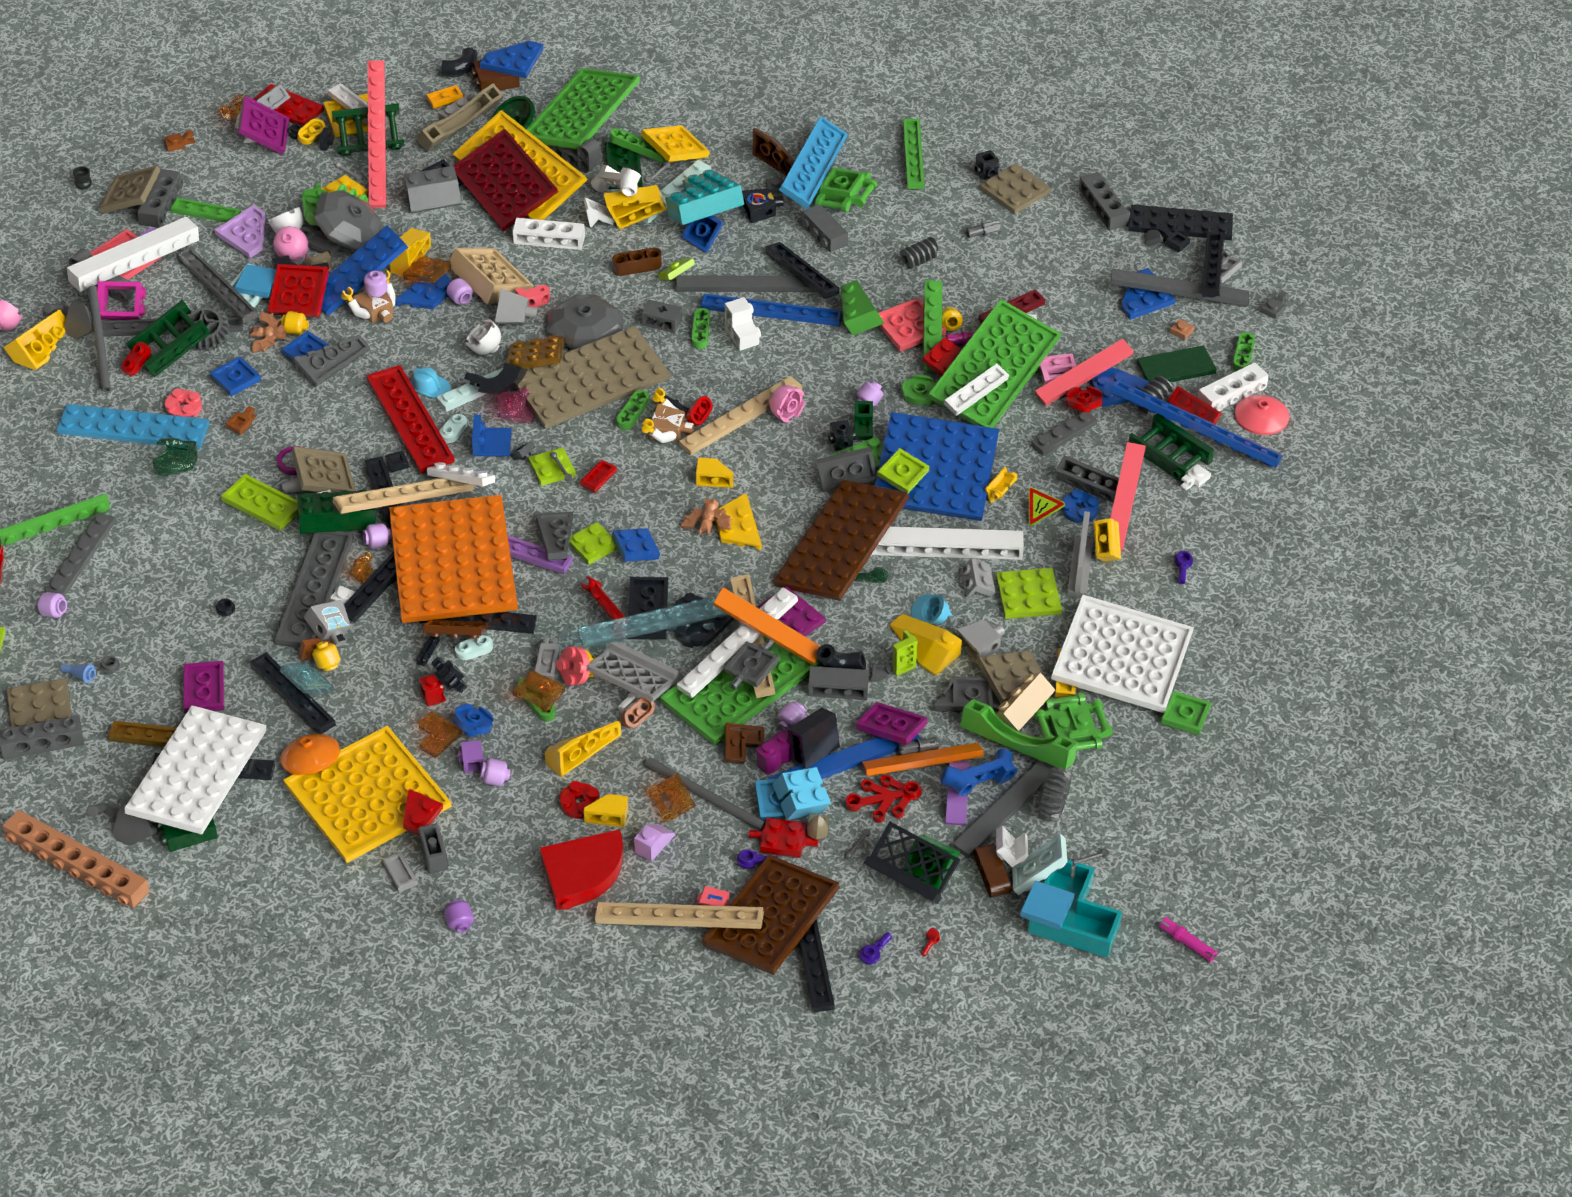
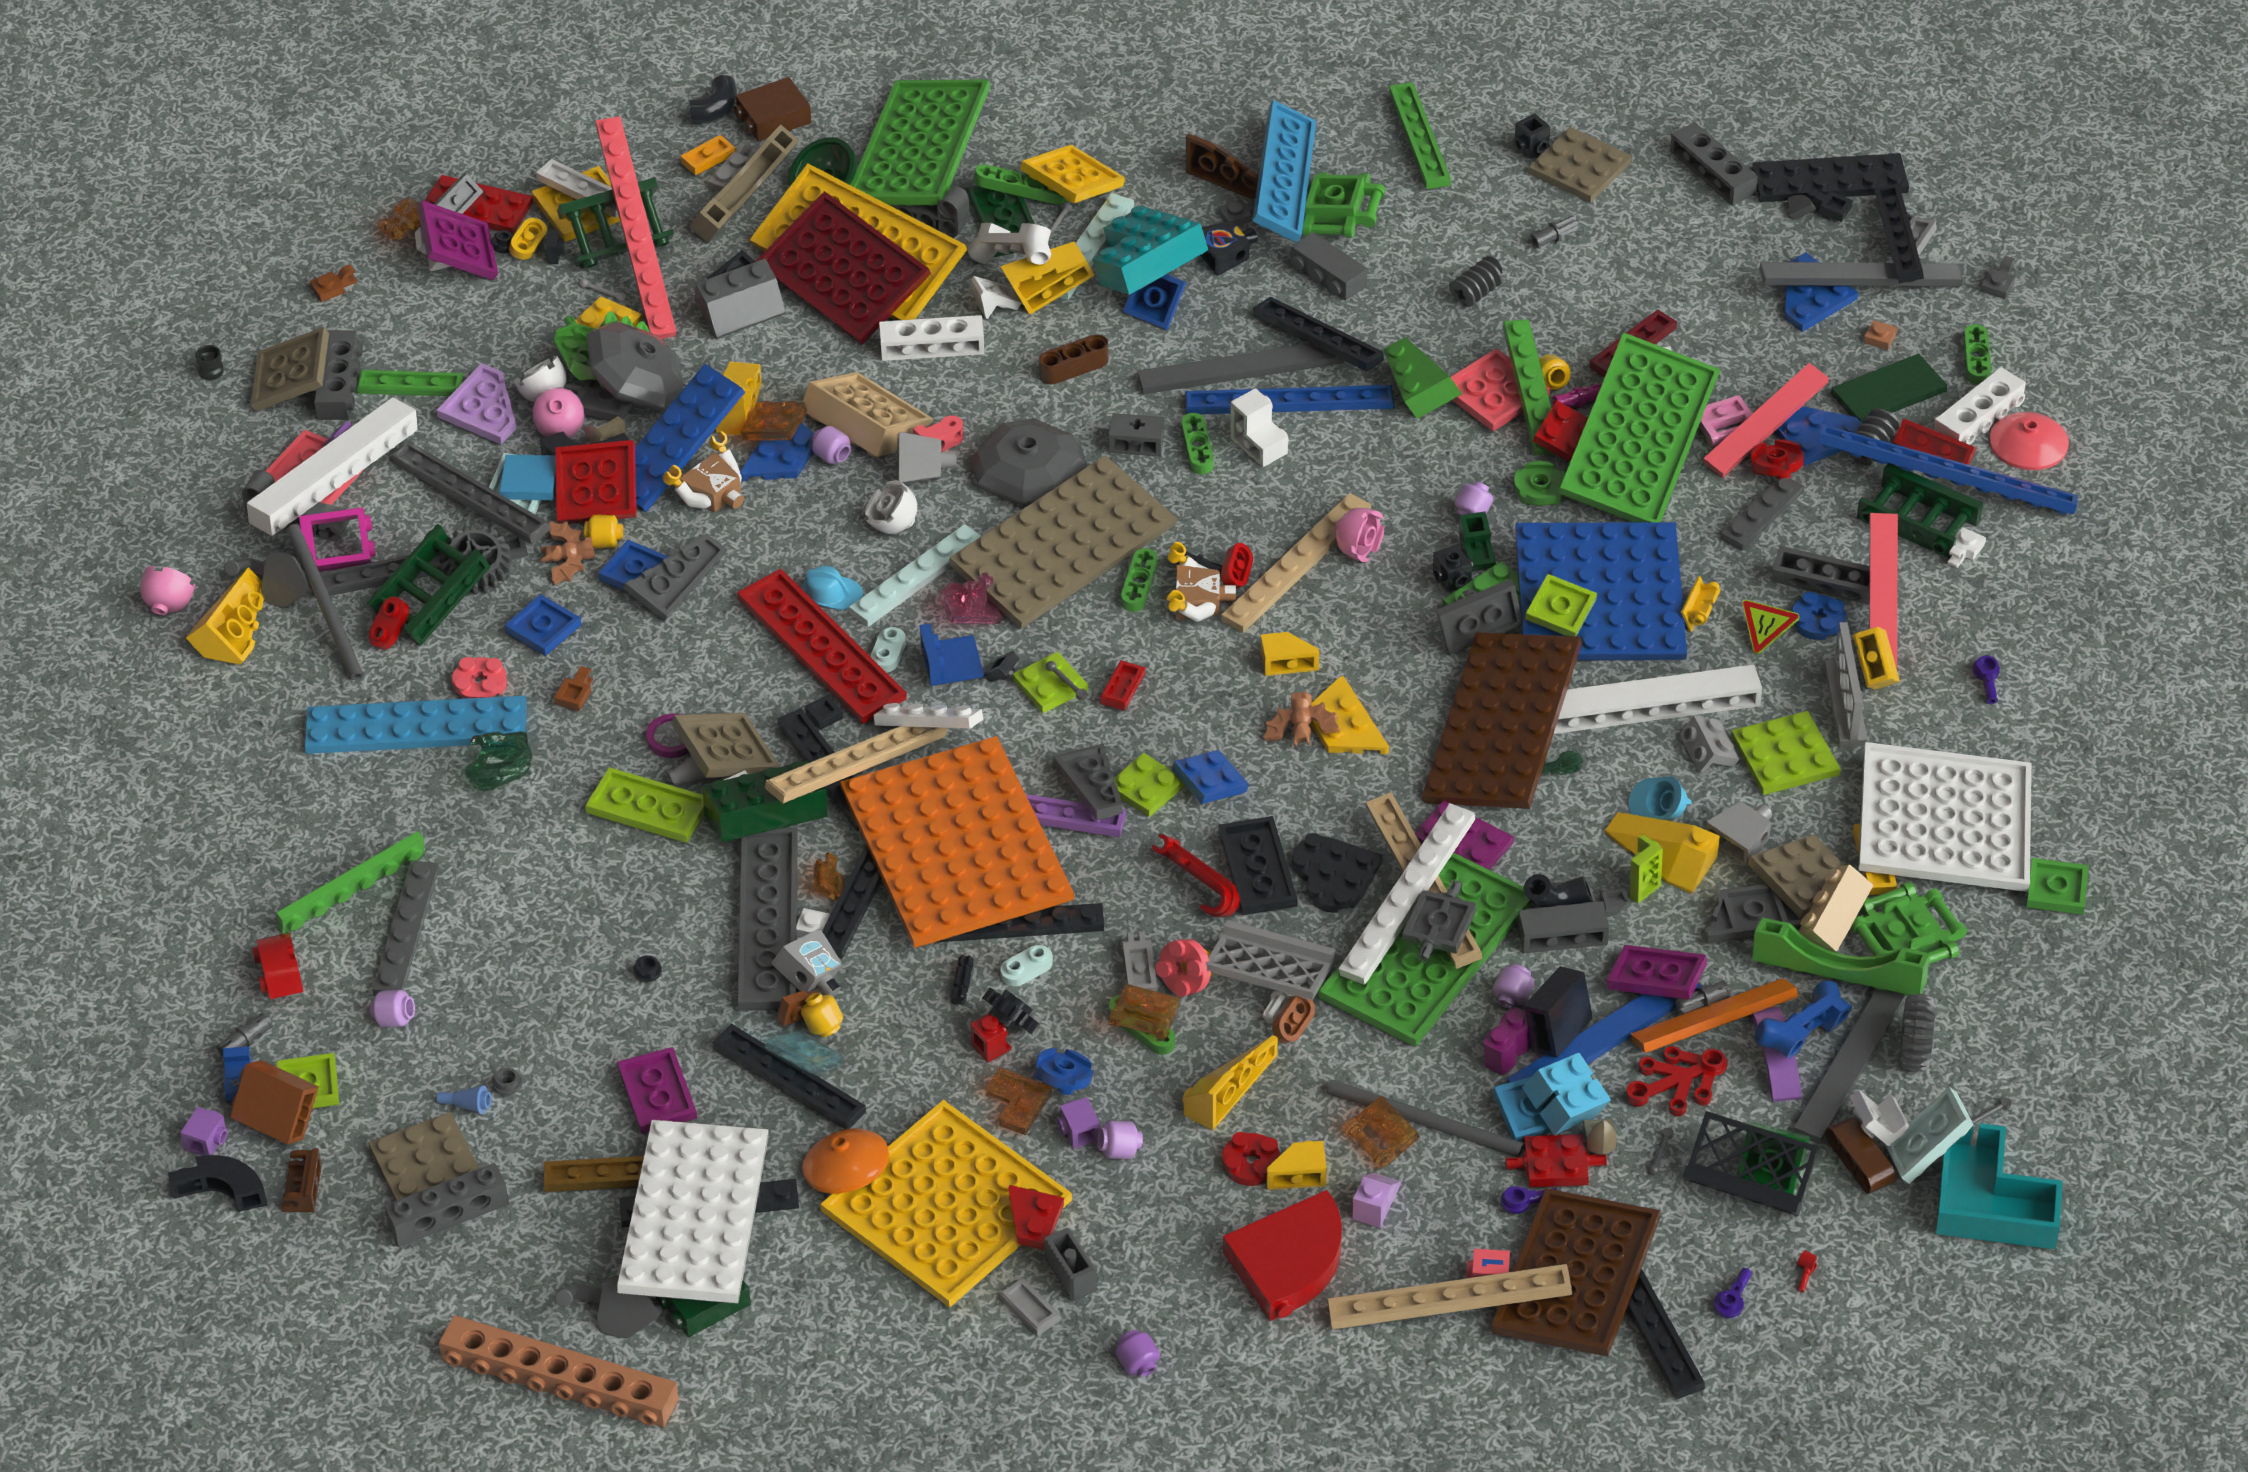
camera: 10 degrees left, 0 degrees up
(375, 283) = (711, 454): lavender head -> none
(376, 535) = (833, 826): lavender head -> none
(455, 628) = (996, 942): reddish brown plate -> none
(505, 381) = (947, 569): black arch -> none
(513, 60) = (796, 83): blue plate -> none
(536, 352) = (974, 519): pearl gold plate -> none
(648, 622) = (1277, 883): clear light blue plate -> none
(676, 268) = (1133, 361): lime plate -> none
(739, 737) = (1448, 1030): reddish brown plate -> none
(767, 625) = (1445, 862): orange tile -> none
(976, 389) = (1626, 470): white plate -> none
(1047, 905) = (1959, 1190): dark azure tile -> none
(1180, 934) = (2146, 1198): dark pink pin -> none

